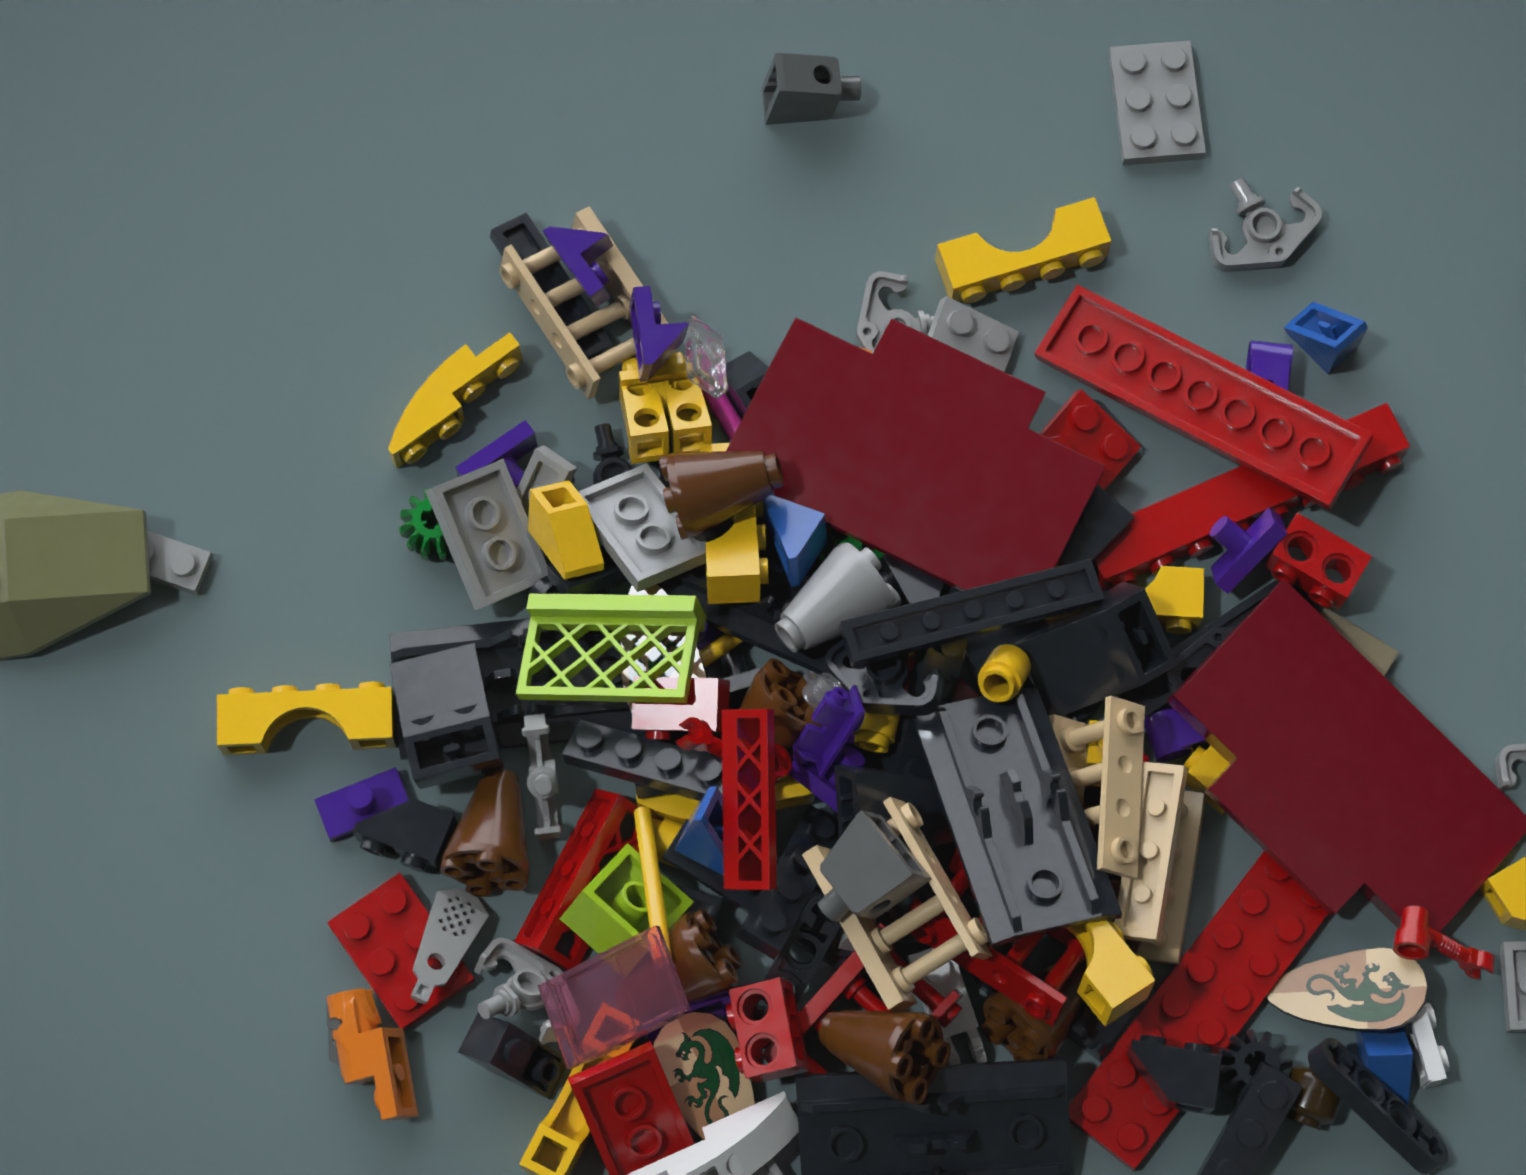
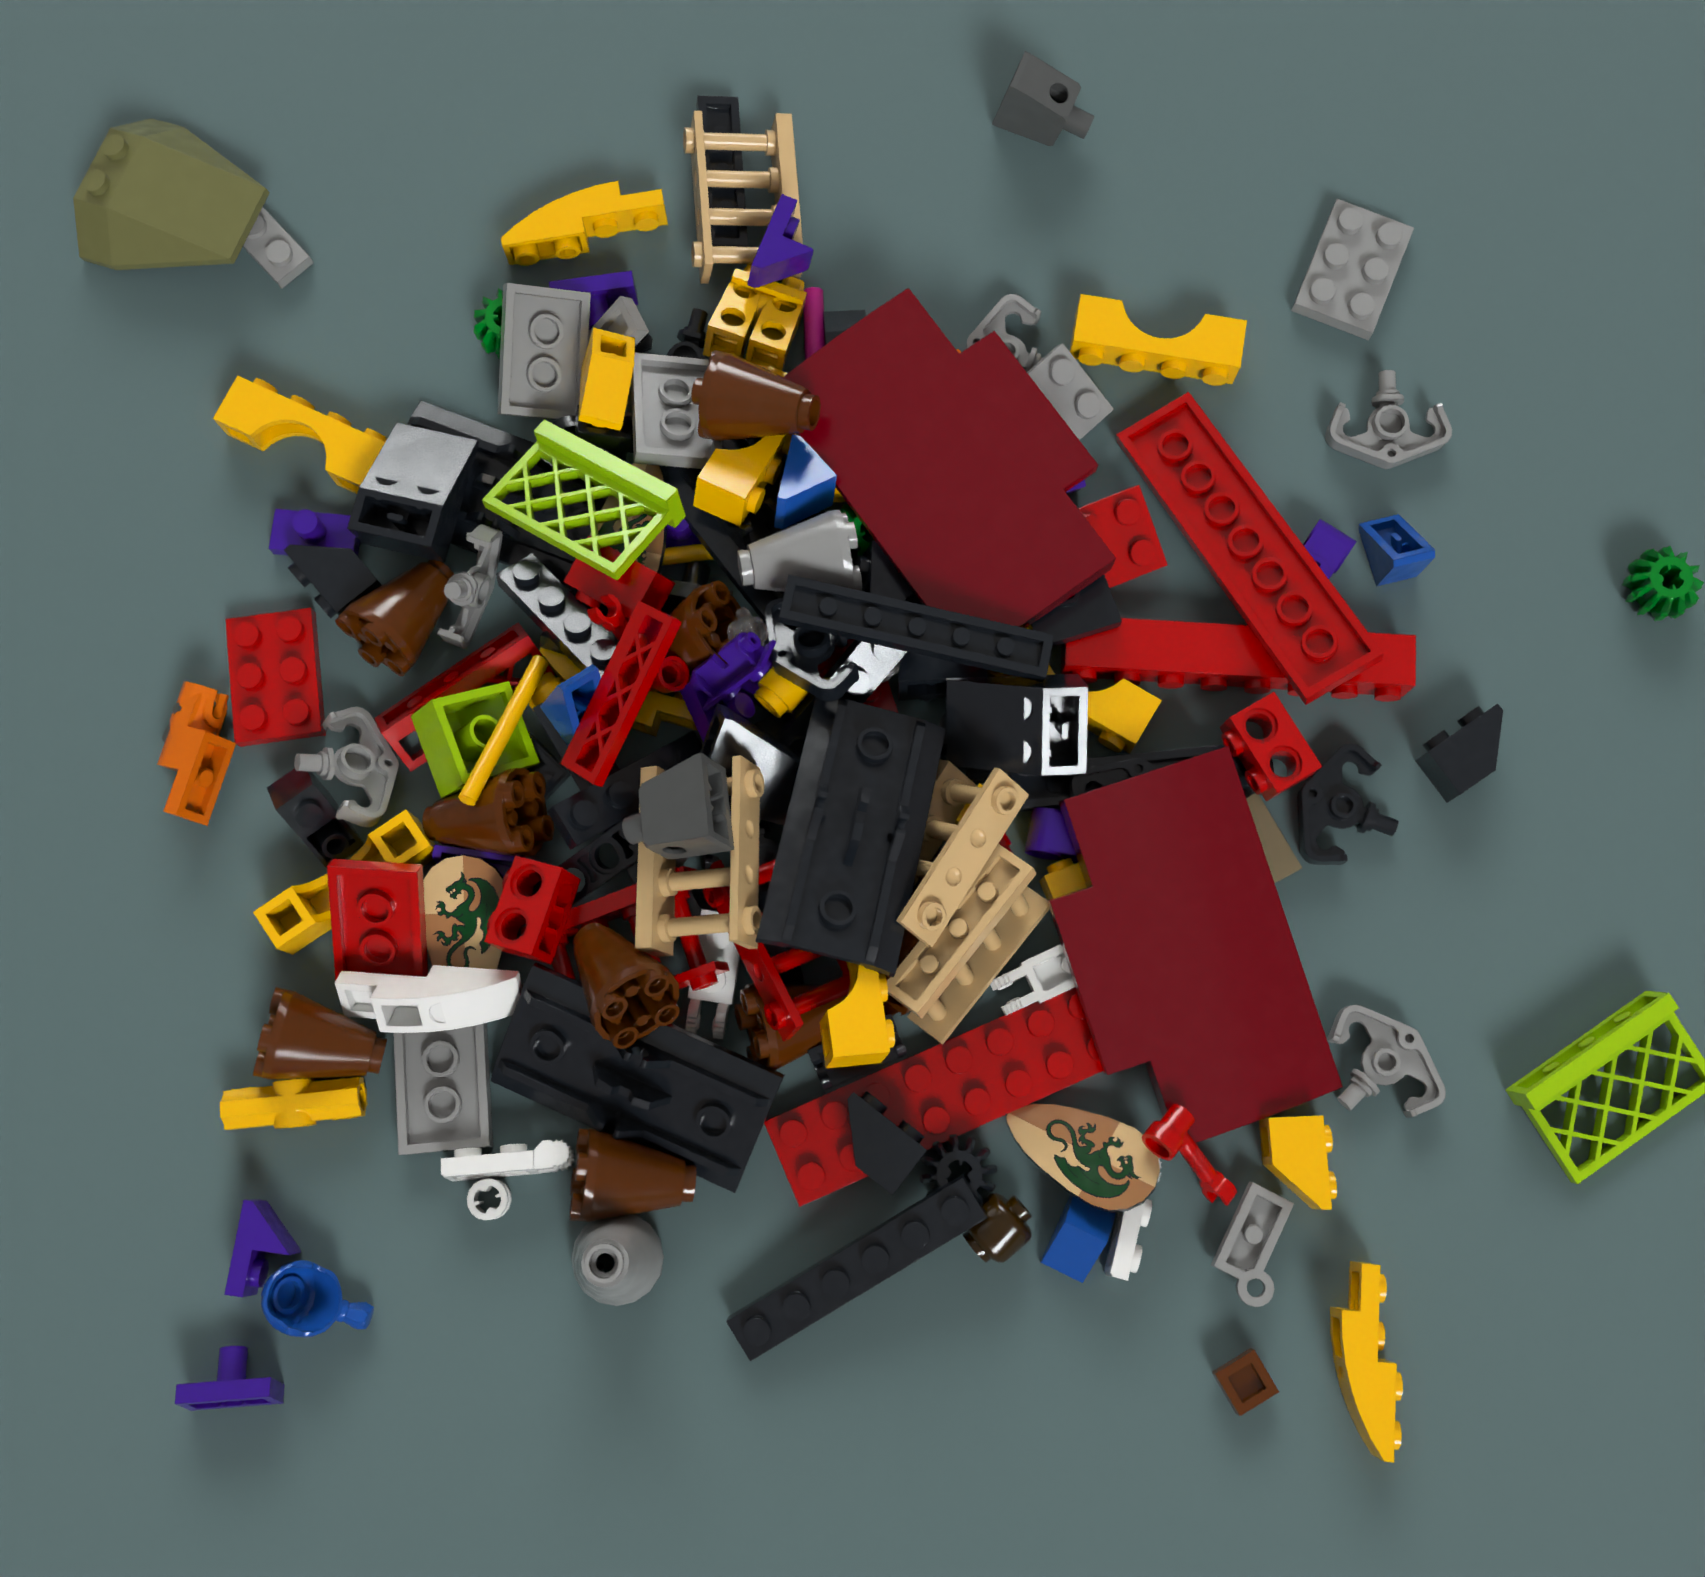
camera: 30 degrees right, 5 degrees up
(443, 944) = (307, 688): light grey piece -> none
(579, 249) = (755, 146): dark purple slope -> none
(614, 998) = (407, 809): clear pink piece -> none
(705, 358) = (819, 293): clear plate -> none
(1004, 673) = (918, 699): yellow brick -> none
(1232, 857) = (1046, 975): none -> white hinge
(1243, 547) = (1208, 699): dark purple tile -> none
(1378, 1106) = (1029, 1222): black beam -> none
(1391, 584) = (1331, 803): none -> black piece
(1483, 485) = (1466, 756): none -> black slope

